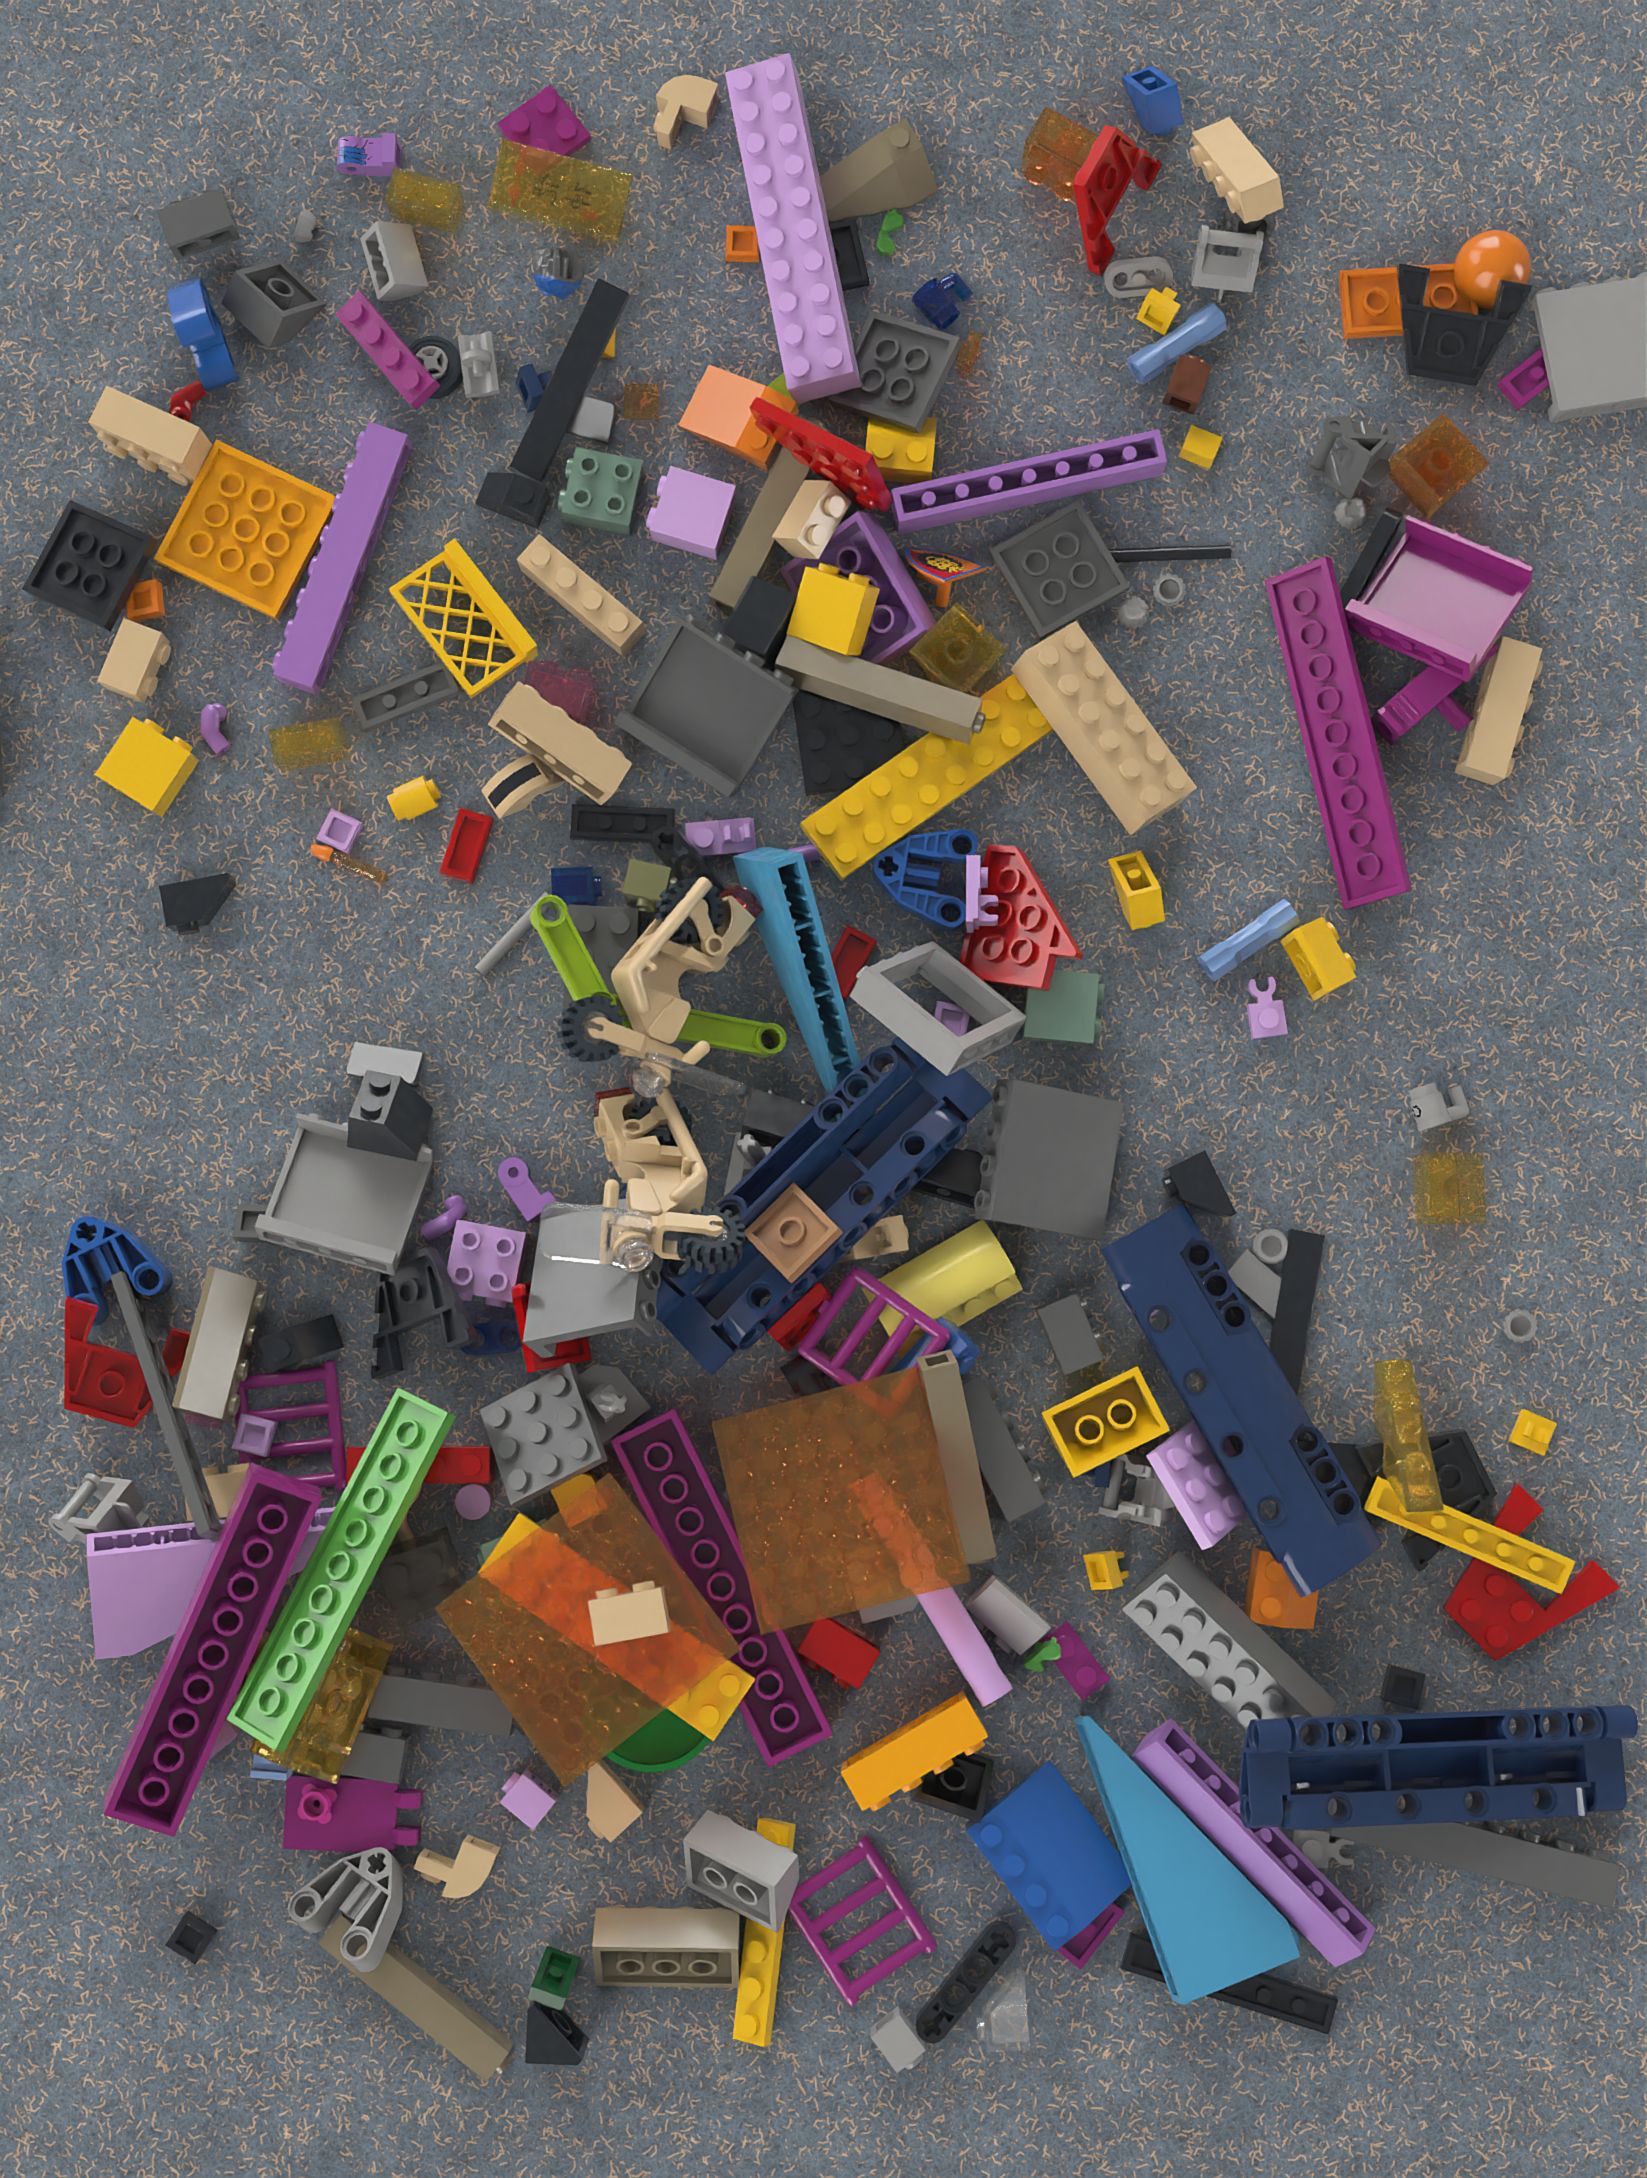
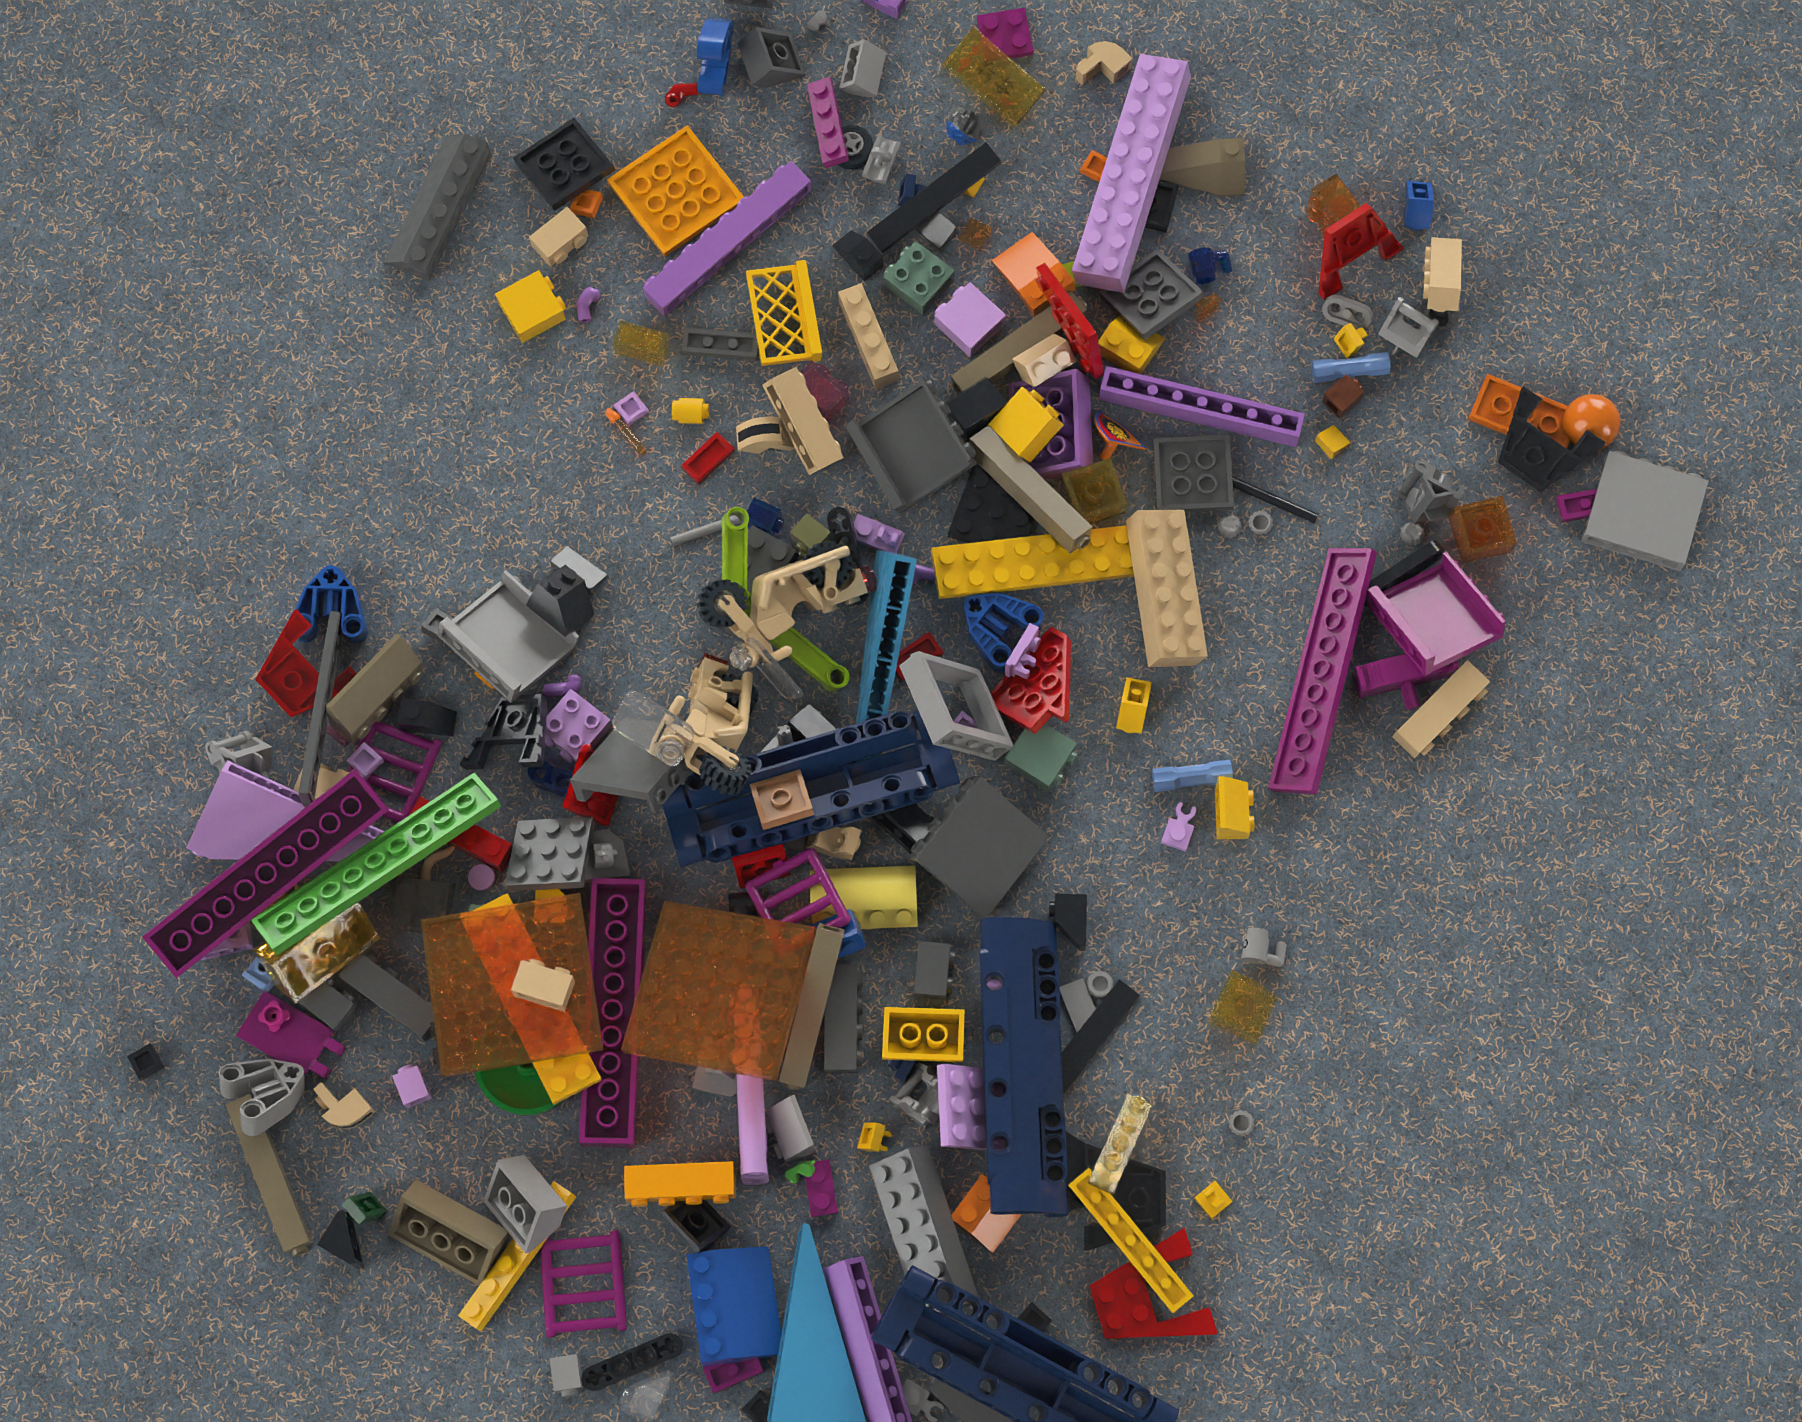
camera: 30 degrees right, 10 degrees down
(150, 436) = (646, 102): tan brick -> none
(194, 901) = (514, 405): black slope -> none
(424, 200) = (903, 41): clear yellow brick -> none
(518, 1182) = (623, 682): medium lavender leg -> none
(609, 1802) = (462, 1116): tan slope -> none
(620, 823) = (814, 492): black tile -> none
(838, 1651) = (667, 1097): red brick -> none
(891, 222) = (1202, 199): bright green piece -> none

